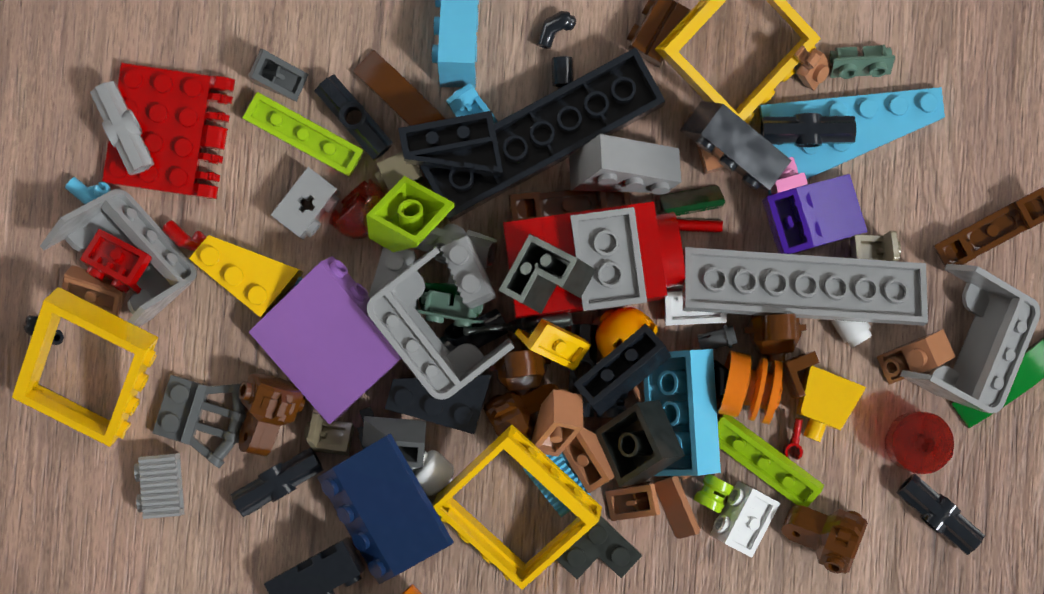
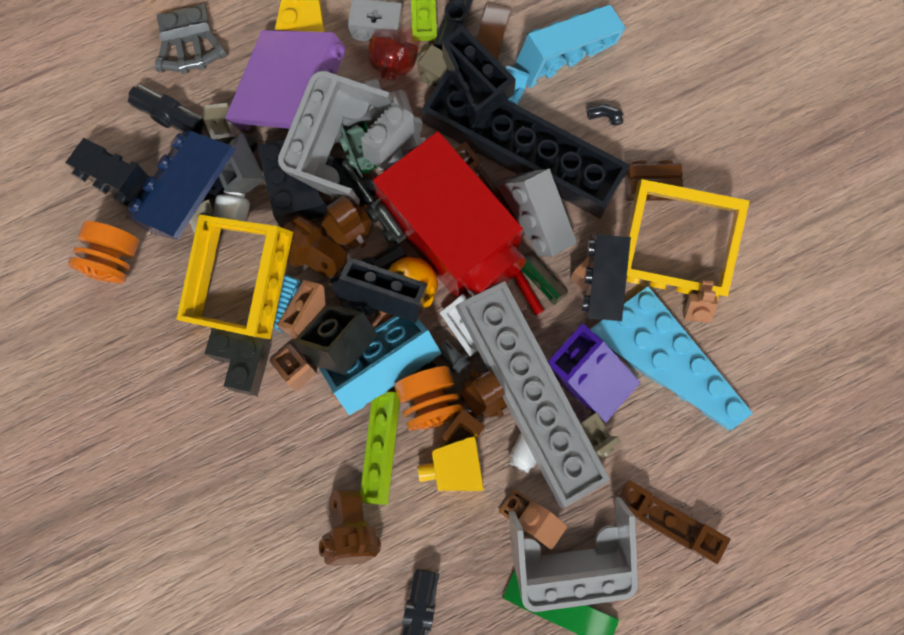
camera: 60 degrees right, 10 degrees down
(160, 486) = (121, 38): light grey brick -> none
(269, 405) = (216, 70): reddish brown piece -> none
(406, 215) = (405, 74): lime slope -> none
(540, 270) = (413, 169): pearl dark grey brick -> none
(555, 344) = (373, 230): yellow panel -> none
(558, 422) = (314, 265): nougat slope -> none
(562, 71) = (582, 131): black hinge -> none
(612, 247) = (456, 217): light grey plate -> none
(677, 507) = (307, 402): nougat slope -> none
(713, 493) = (332, 422): lime wheel -> none
(744, 519) = (325, 459): white bracket -> none
(789, 179) = (607, 330): bright pink bracket -> none
(795, 439) = (411, 461): red hand -> none
(809, 130) = (653, 327): black piece -> none
(875, 62) = (735, 350): sand green hinge -> none
(935, 450) = (466, 579): clear red brick -> none

